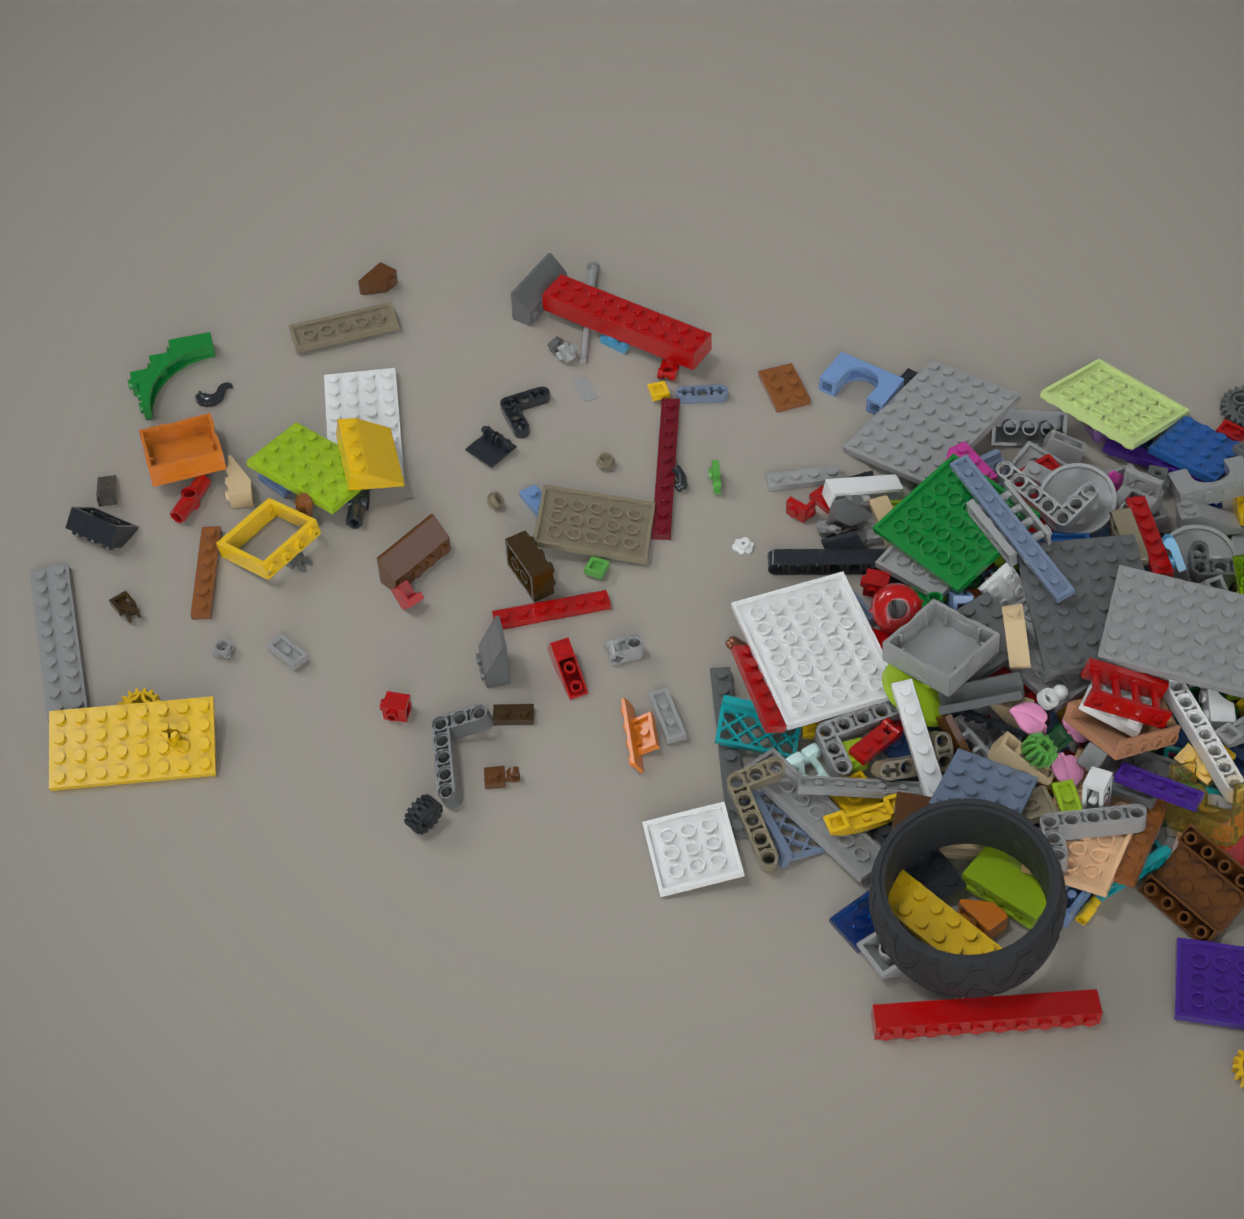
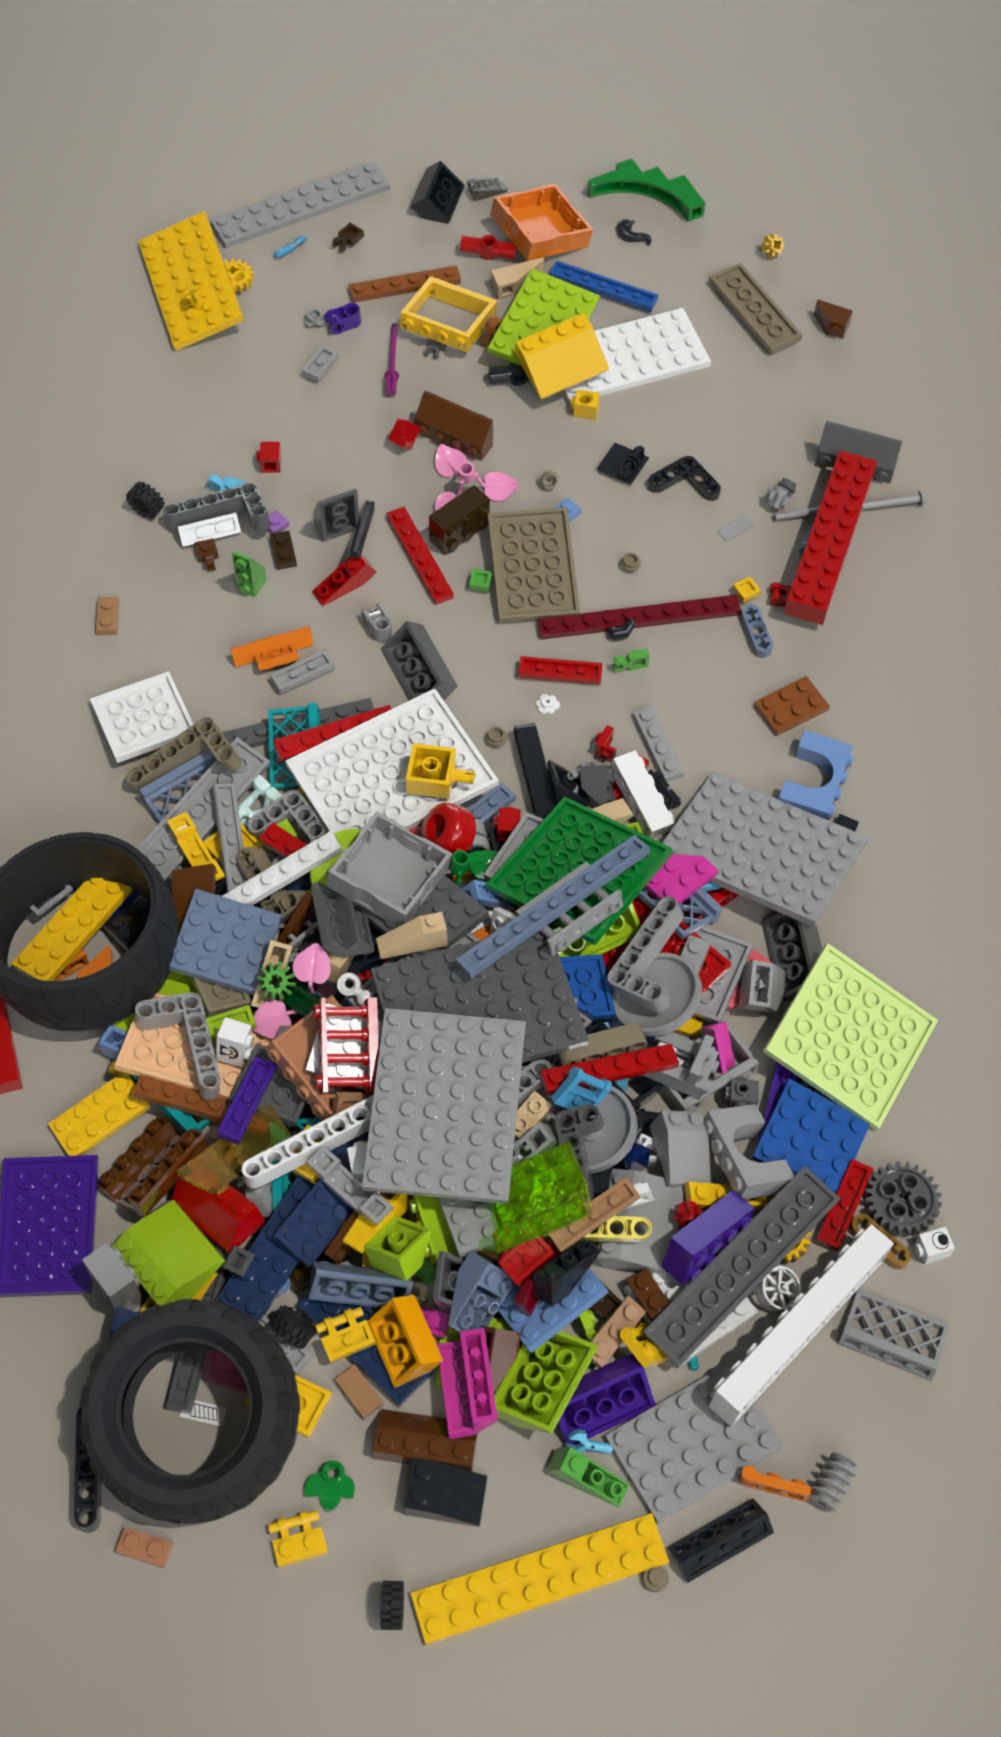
camera: 75 degrees right, 10 degrees up
(116, 657) = (289, 248): none -> dark azure piece
(236, 623) = (344, 318): none -> dark purple piece
(274, 424) = (604, 286): none -> blue plate
(277, 300) = (772, 245): none -> yellow gear
(326, 597) = (391, 375): none -> magenta piece
(416, 459) = (585, 404): none -> yellow brick
(419, 748) = (218, 484): none -> medium azure plate
(472, 769) = (209, 529): none -> white plate
(485, 540) = (452, 461): none -> bright pink plant
(529, 638) = (362, 529): none -> black axle
(547, 737) = (249, 574): none -> bright green slope
(554, 871) = (107, 616): none -> medium nougat plate
(684, 626) = (418, 662): none -> dark grey slope
(712, 528) = (560, 670): none -> red plate
(773, 583) = (496, 736): none -> dark tan plate
(834, 607) = (434, 771): none -> yellow brick
(1135, 933) = (98, 1116): none -> yellow plate

